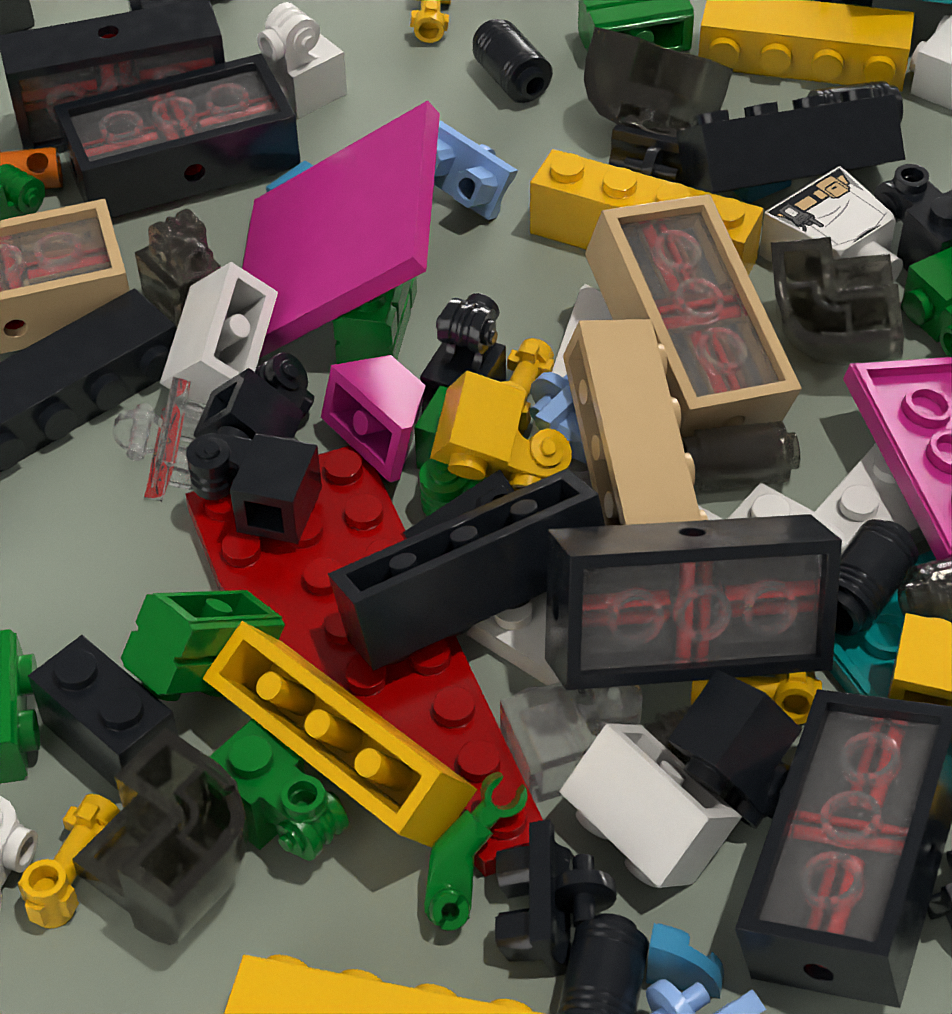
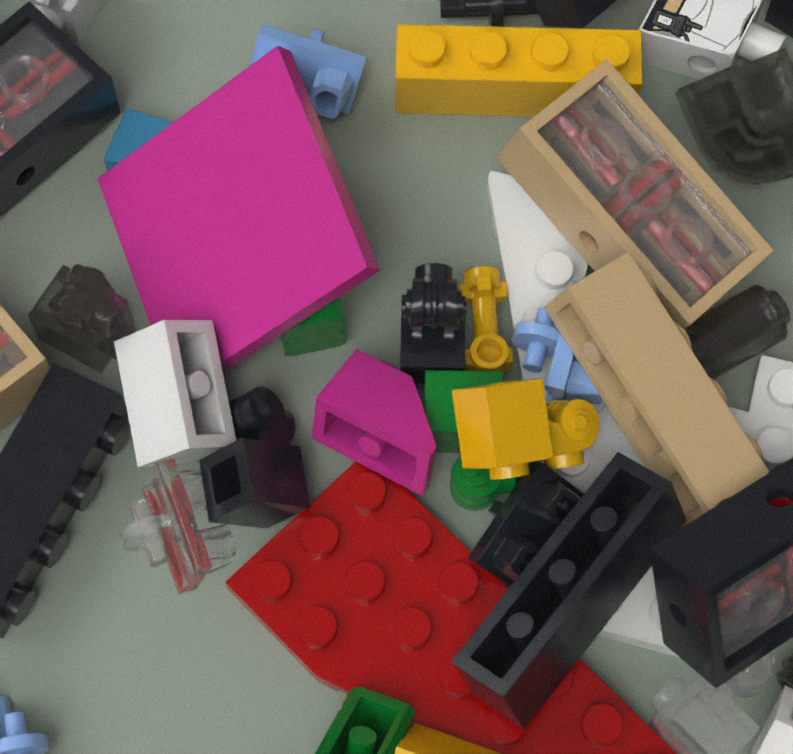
camera: 25 degrees left, 20 degrees up
(268, 479) = (321, 548): black brick -> none

